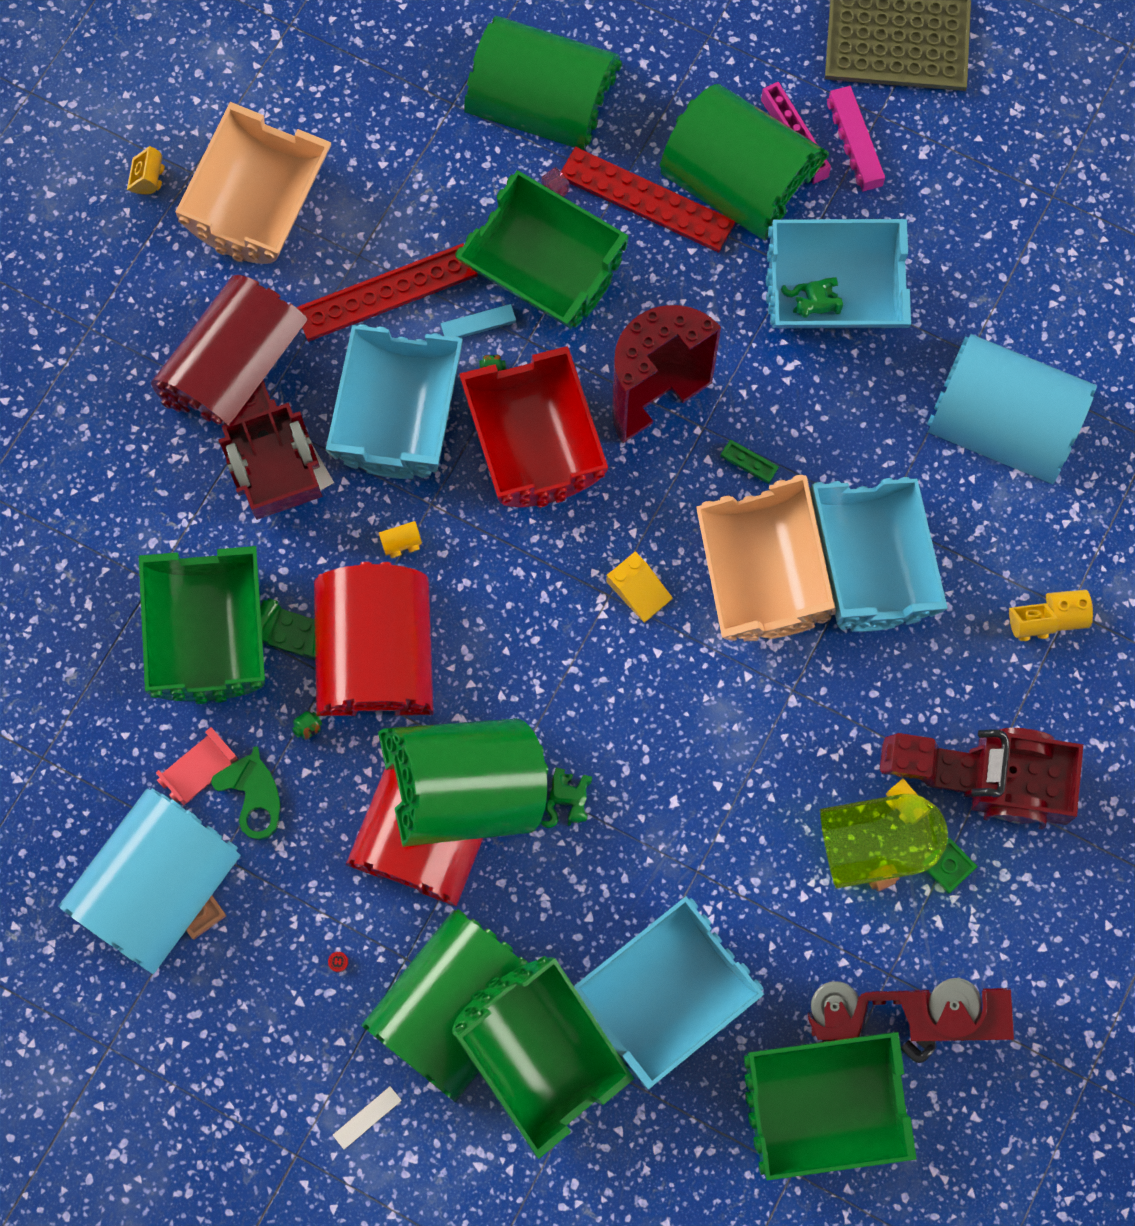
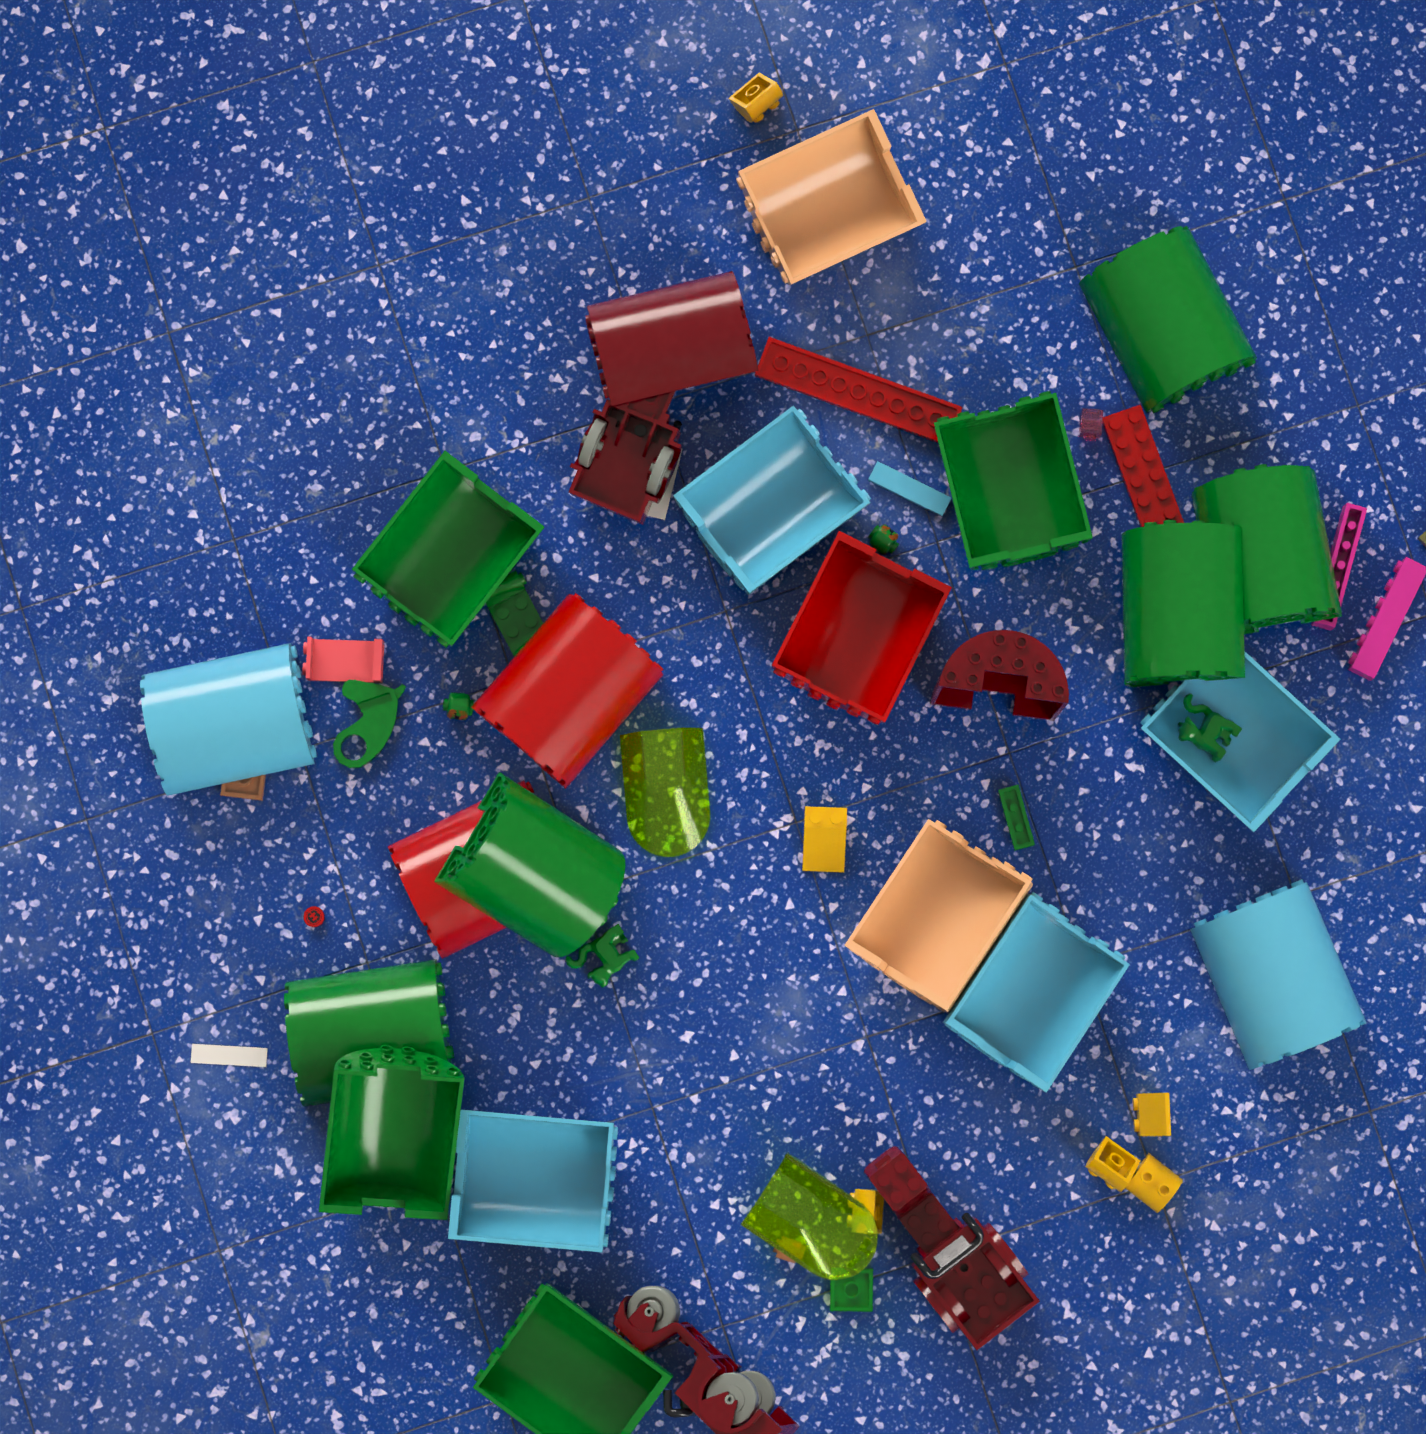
camera: 45 degrees right, 10 degrees up
(400, 539) = (670, 620): yellow brick -> none
(501, 651) = (666, 789): none -> clear neon green windscreen
(722, 229) = (1182, 603): none -> green cylinder
(1027, 561) = (1152, 1114): none -> yellow slope

